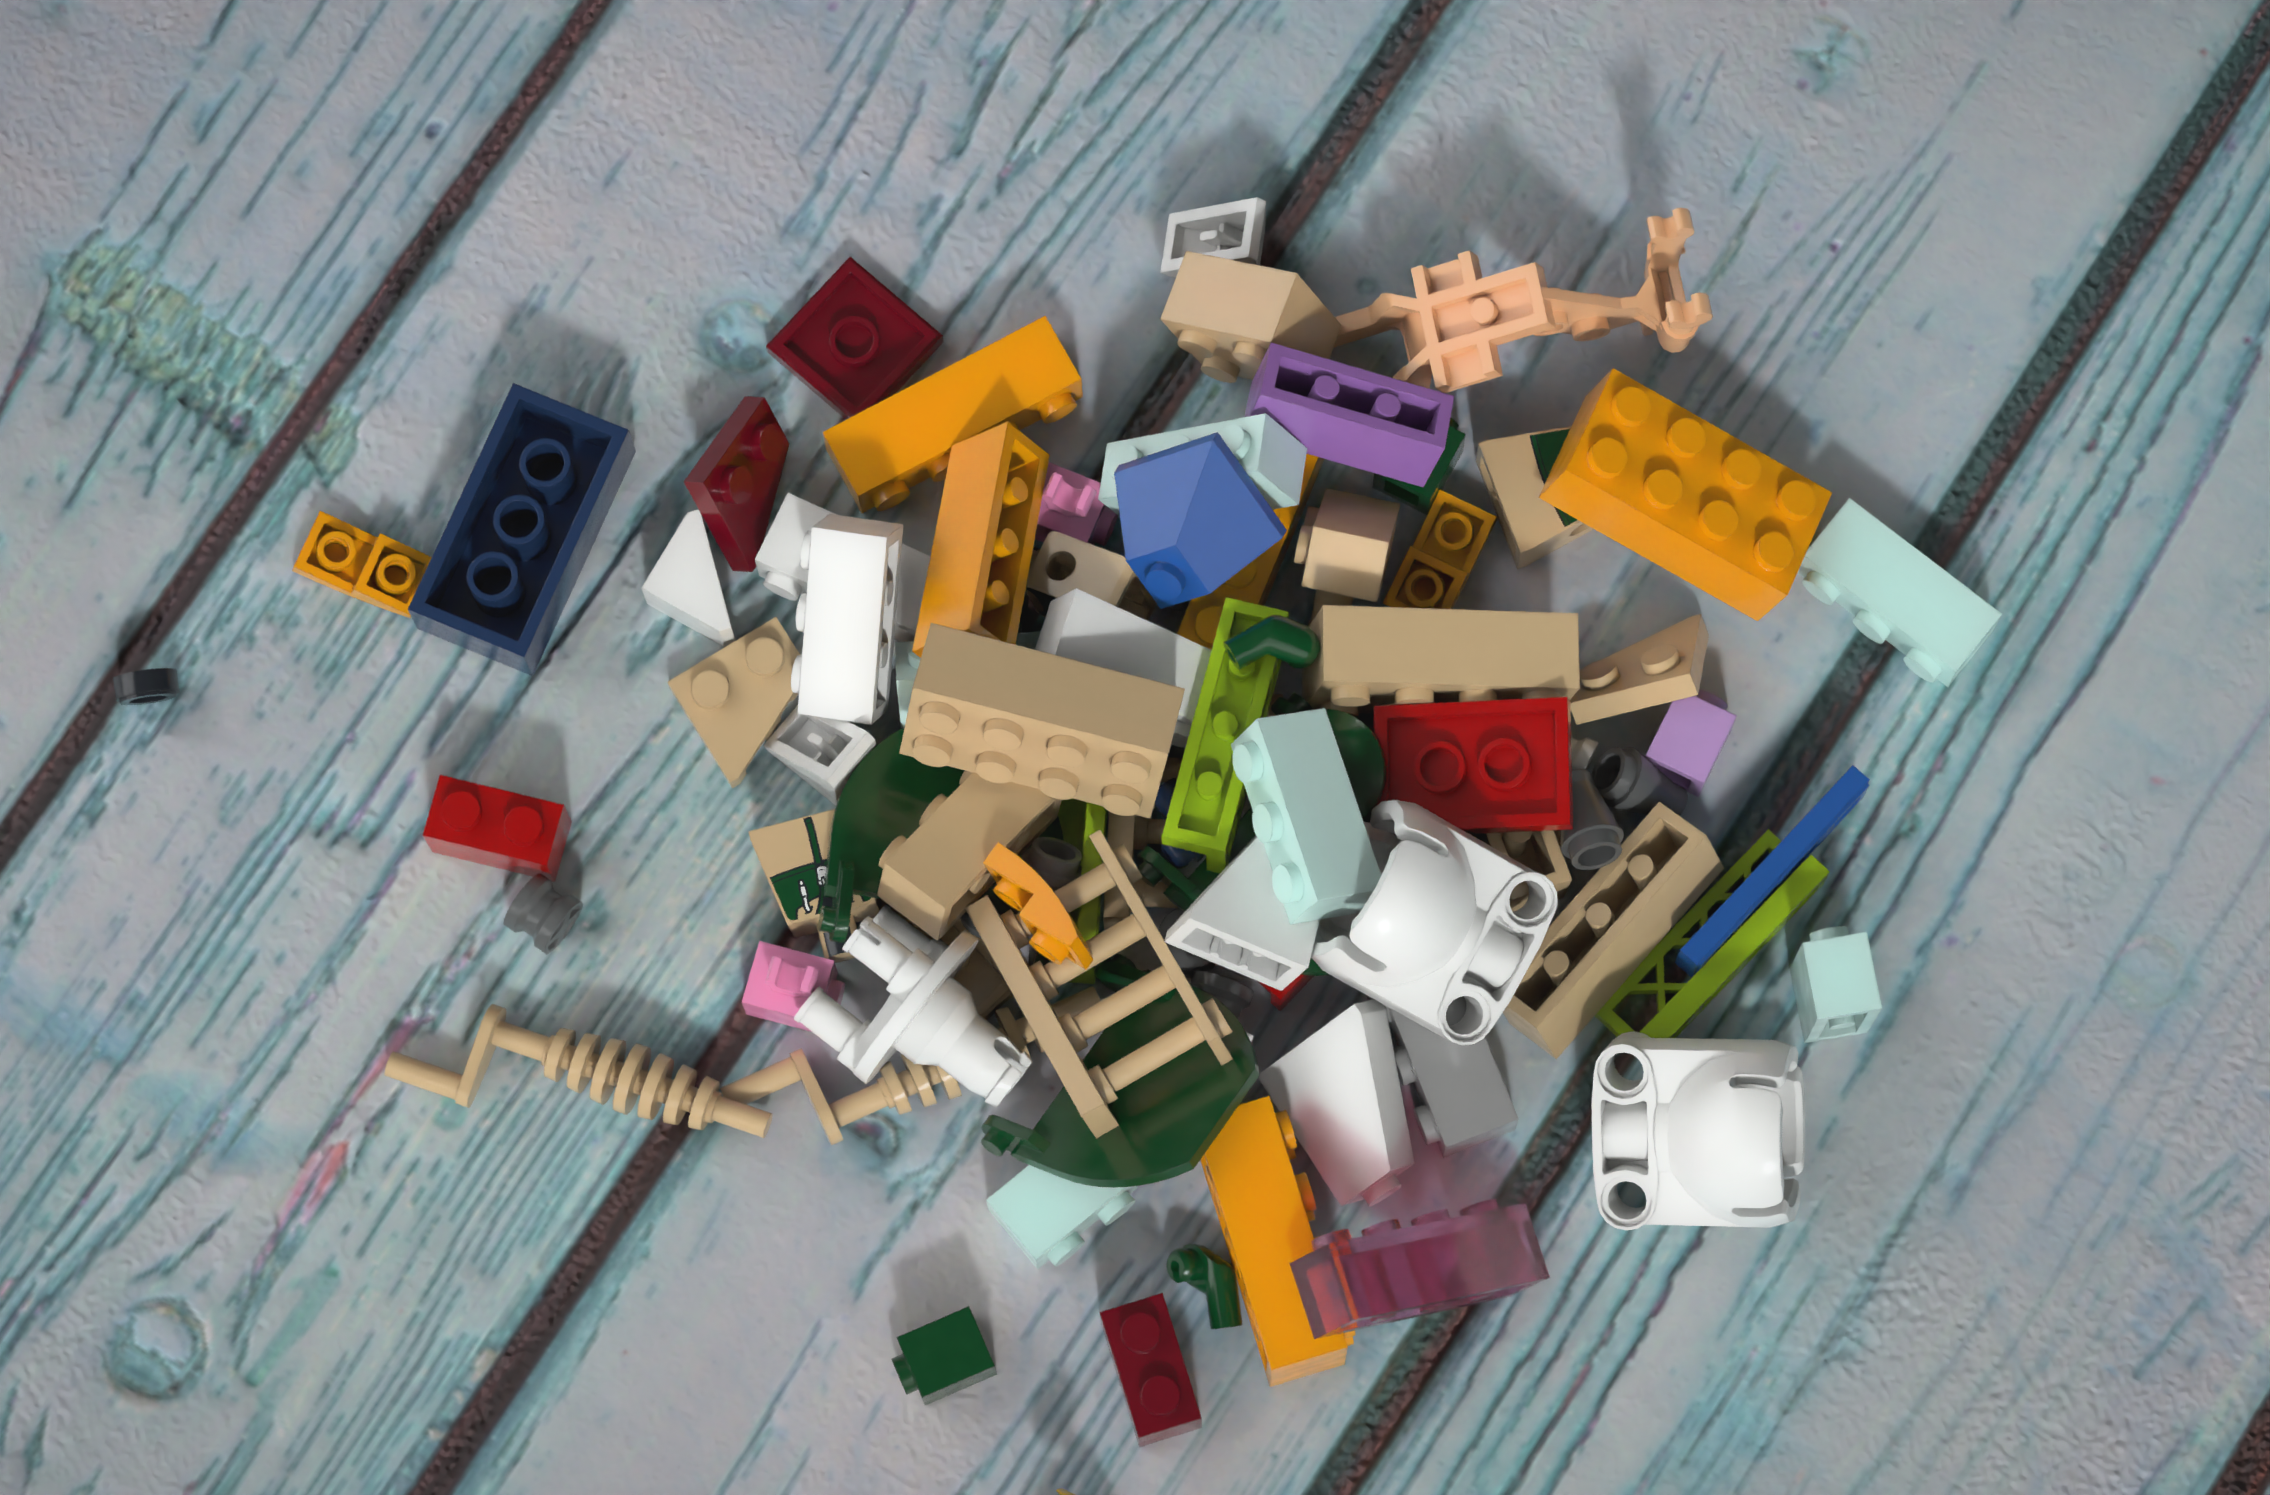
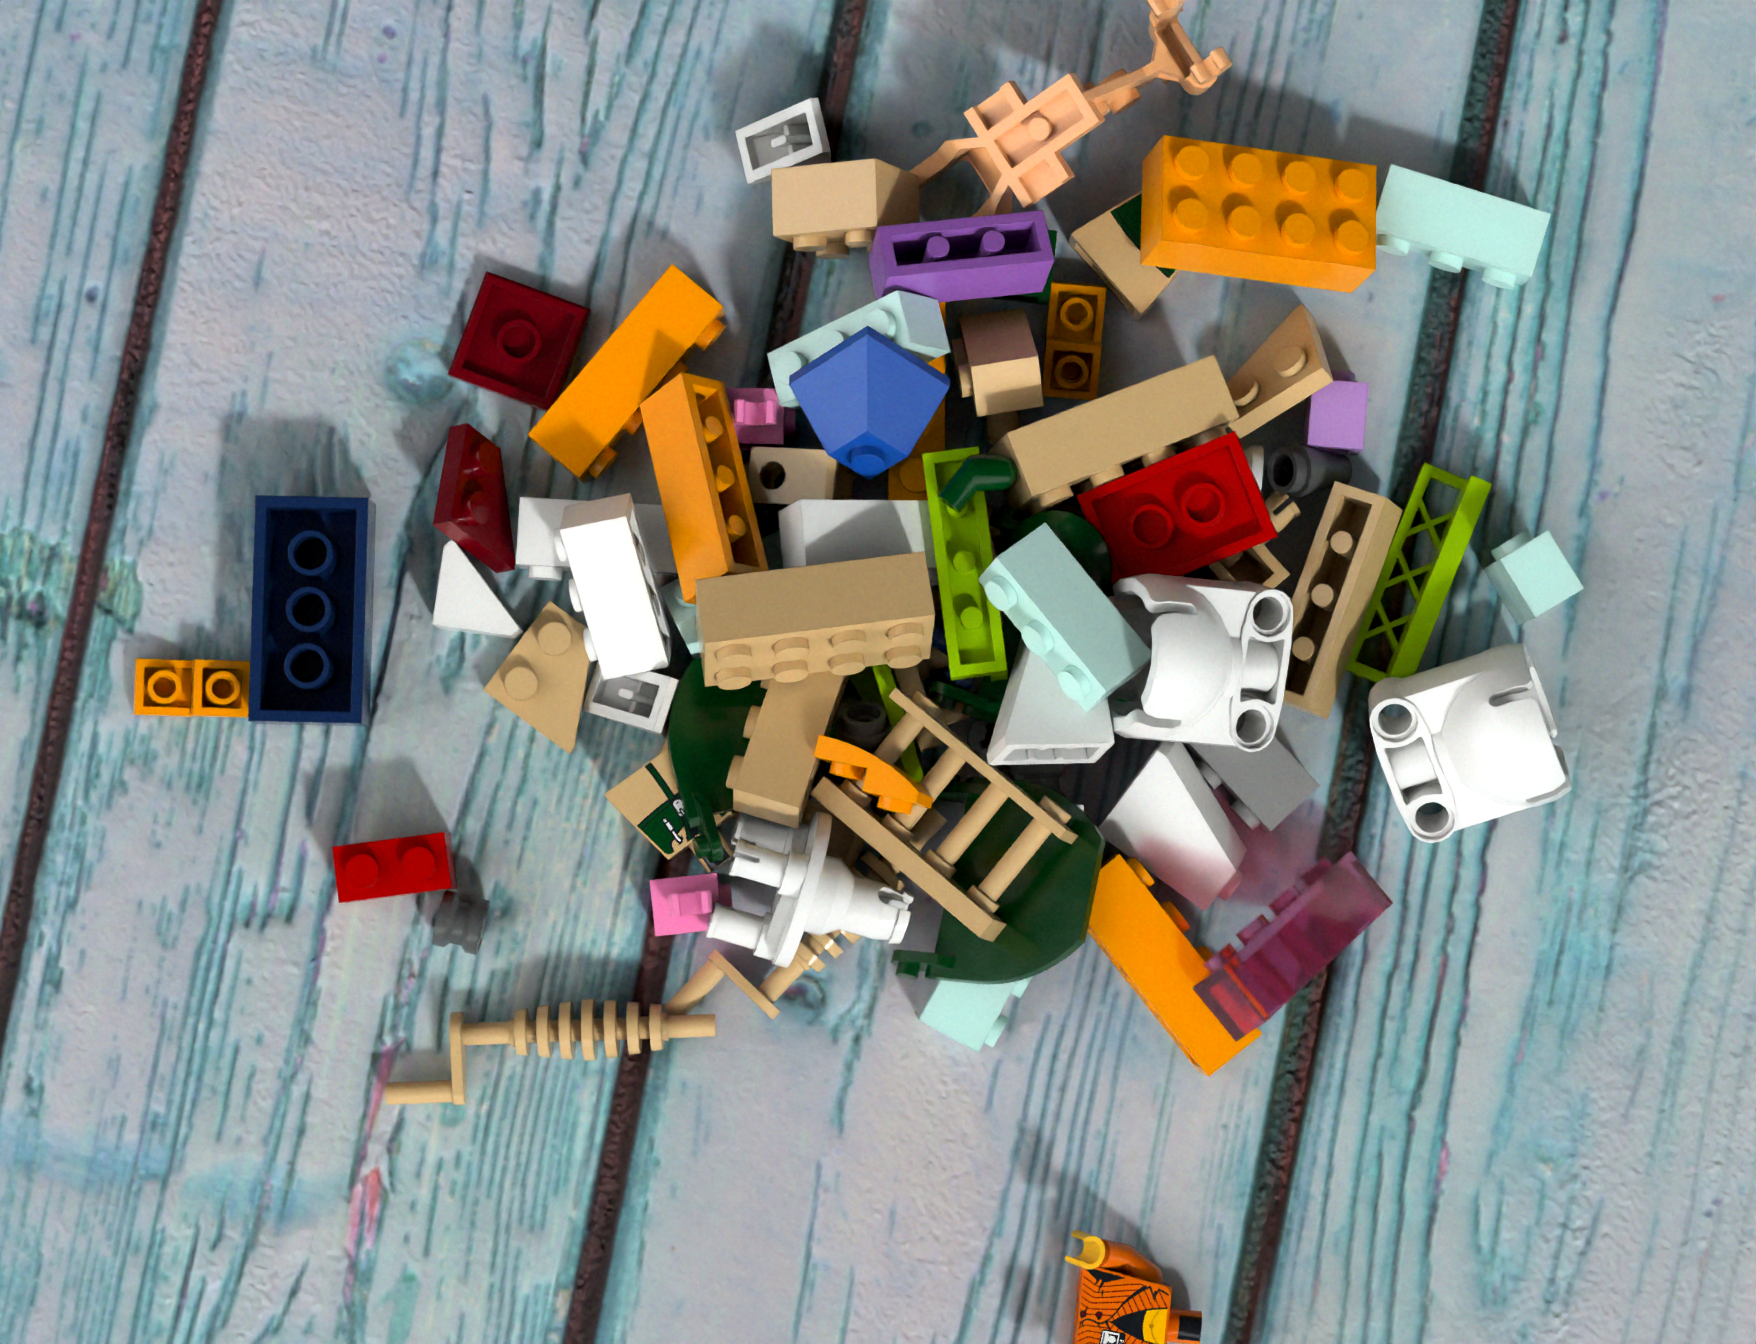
camera: 30 degrees left, 10 degrees up
(146, 686) = (55, 861): black tile -> none
(943, 1357) = (932, 1156): dark green brick -> none
(1151, 1370) = (1103, 1102): dark red brick -> none
(1210, 1276) = (1120, 1004): dark green arm -> none
(1595, 830) = (1293, 524): dark grey cone -> none
(1774, 870) = (1445, 500): blue tile -> none

